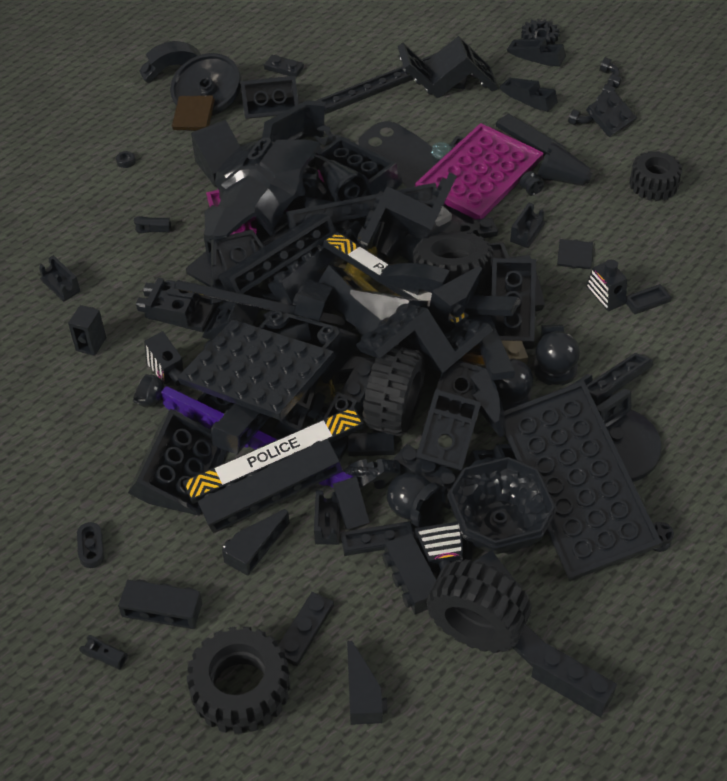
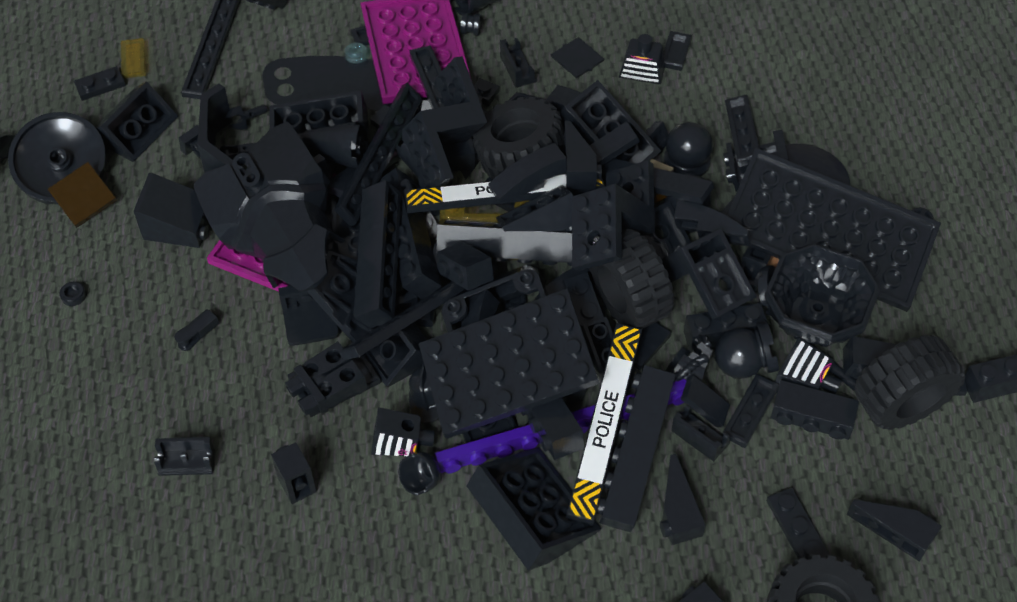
camera: 50 degrees left, 5 degrees up
(318, 65) = (133, 58): none -> clear yellow tile
(459, 193) = (427, 70): none -> black tile

